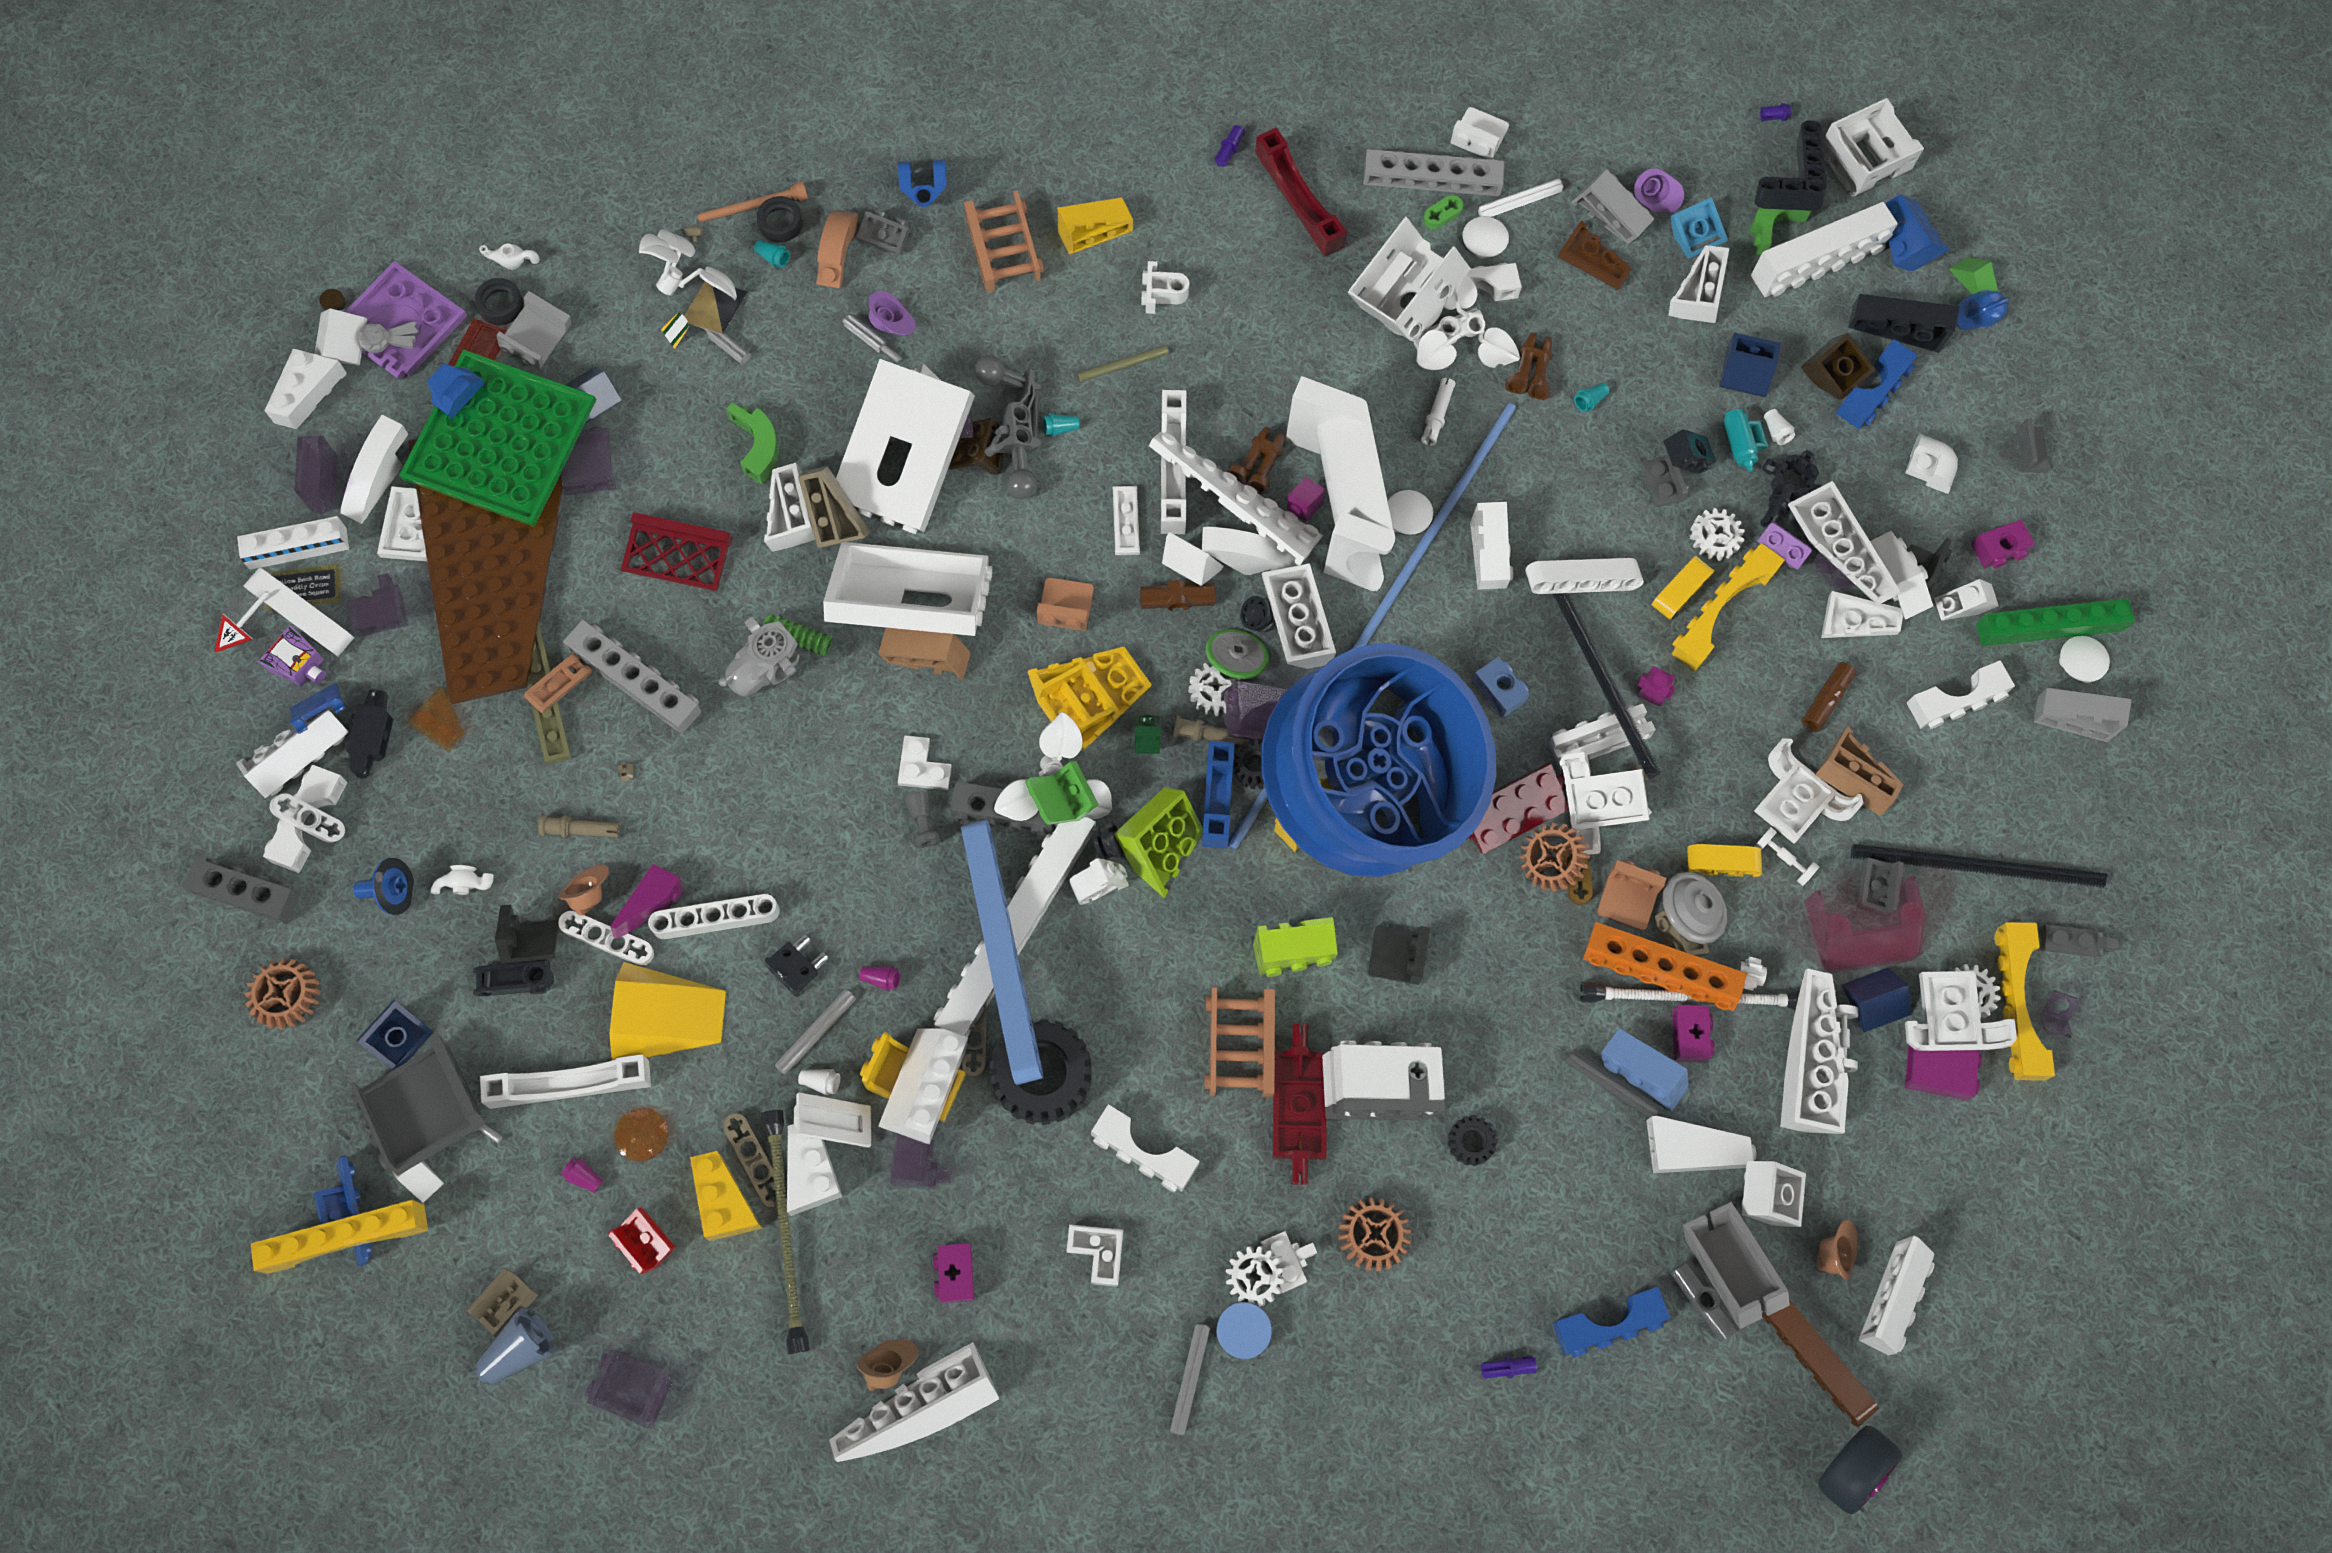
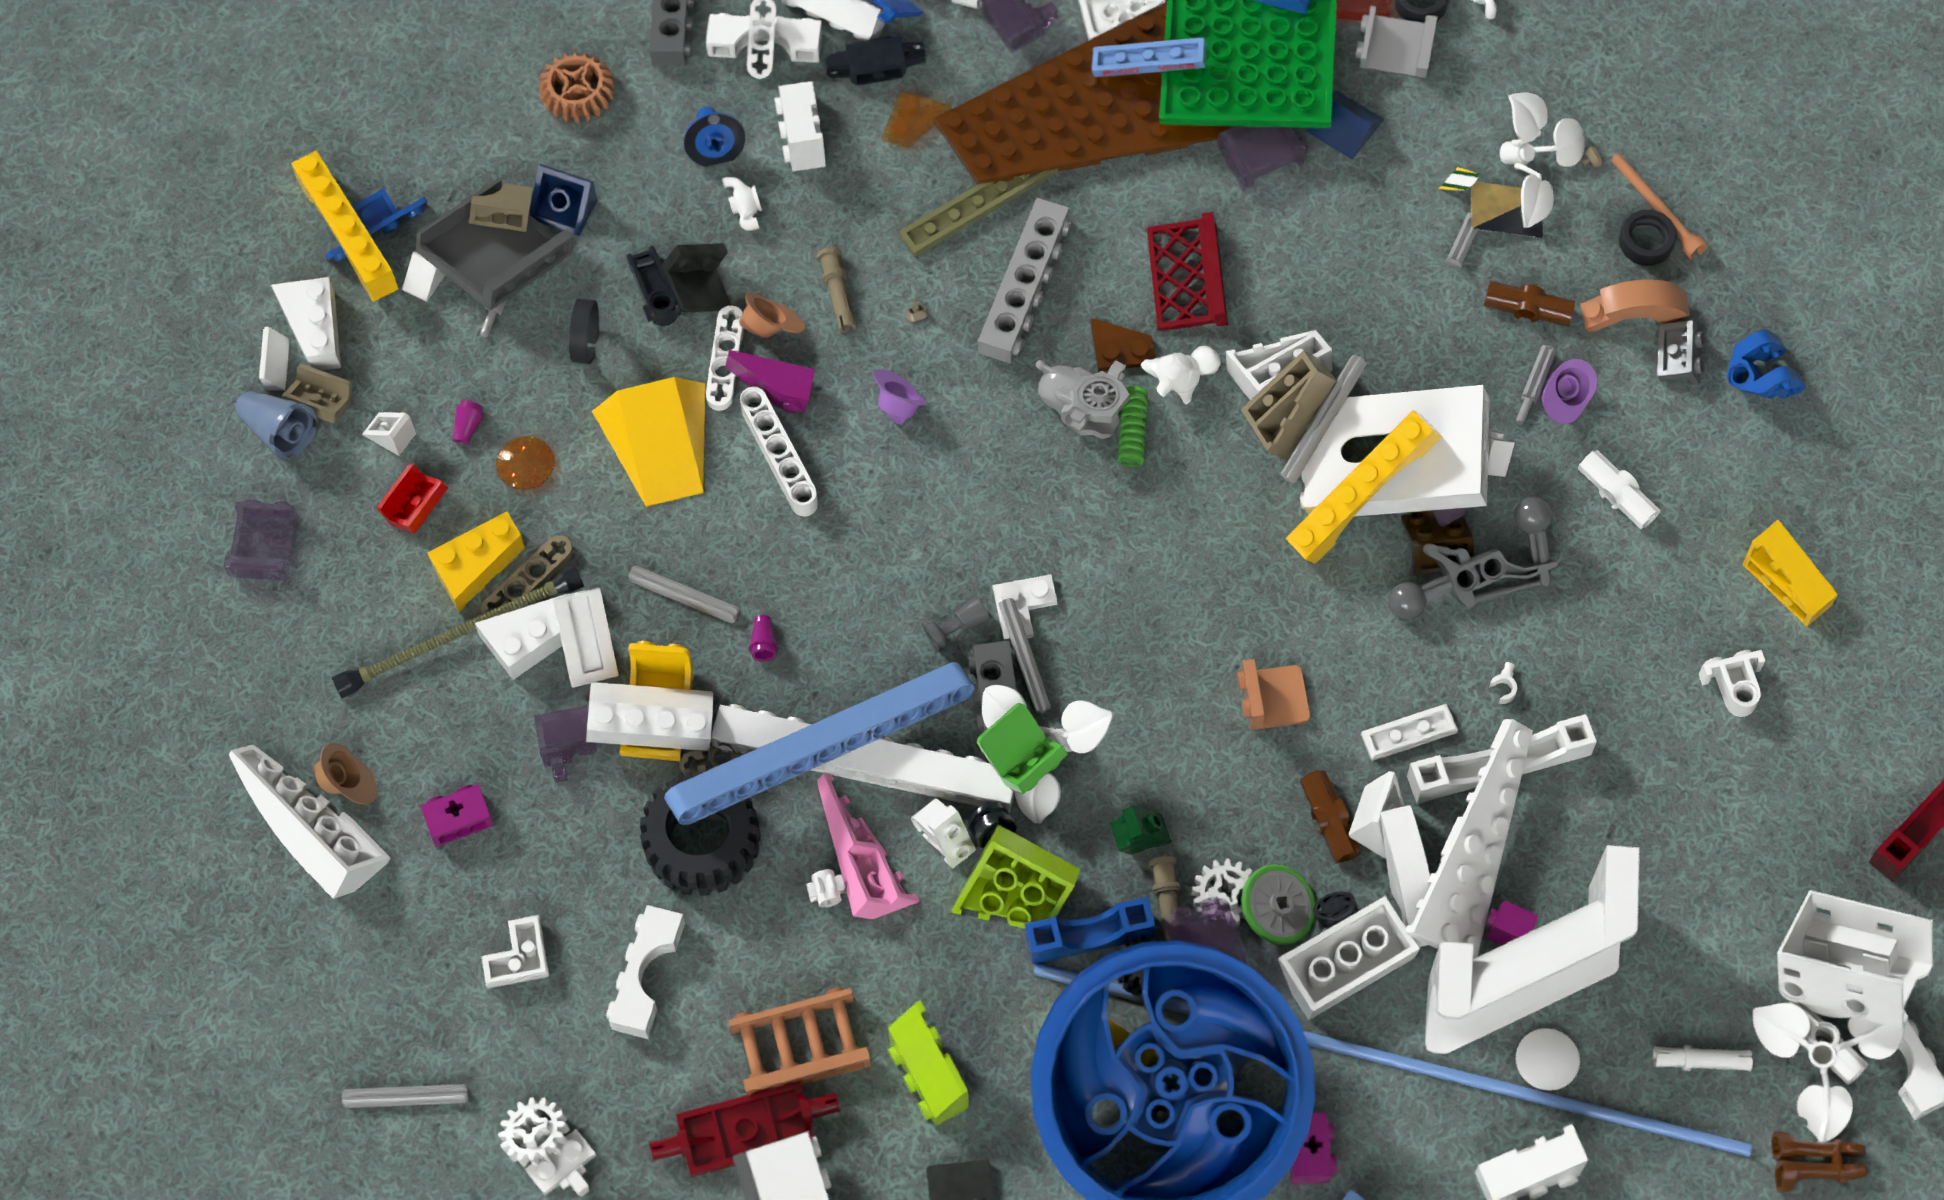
camera: 80 degrees right, 5 degrees down
(387, 1084) = (502, 209): none -> dark tan arch
(408, 811) = (800, 126): none -> white wedge
(424, 1290) = (313, 319): none -> white wedge
(450, 1336) = (273, 360): none -> white slope
(472, 512) = (1149, 57): none -> medium blue plate
(526, 1088) = (557, 372): white arch -> none
(538, 1046) = (583, 330): none -> black tyre
(557, 683) = (988, 210): nougat plate -> none
(563, 1246) = (391, 431): none -> white slope
(701, 806) = (897, 396): none -> medium lavender piece
(721, 623) = (1120, 344): none -> reddish brown wing
(764, 581) = (1182, 371): none -> white animal
(765, 450) = (1351, 318): bright green arch -> none
(775, 254) = (1599, 247): teal cone -> none
(790, 969) = (744, 546): black piece -> none
(802, 317) = (1529, 302): none -> reddish brown piece
(821, 1080) = (630, 616): white cone -> none
(853, 488) = (1323, 419): none -> light grey axle
(872, 580) = (1226, 477): white panel -> none
(925, 649) = (1159, 562): medium nougat wedge -> none
(926, 475) = (1401, 447): none -> yellow arch
(968, 775) = (1024, 655): none -> light grey axle
(982, 310) = (1619, 489): none -> white piece
(985, 255) = (1719, 455): nougat fence -> none
(1059, 424) = (1504, 619): teal cone -> none
(1090, 690) = (1171, 754): yellow wedge -> none
(1105, 439) = (1506, 677): none -> white piece
(1115, 952) = (867, 880): none -> bright pink wedge
(1118, 985) = (826, 888): none -> white gear
(1123, 363) = (1617, 668): olive bar -> none
(1244, 1330) = (470, 1136): medium blue piece -> none
(1260, 446) = (1567, 855): reddish brown piece -> none

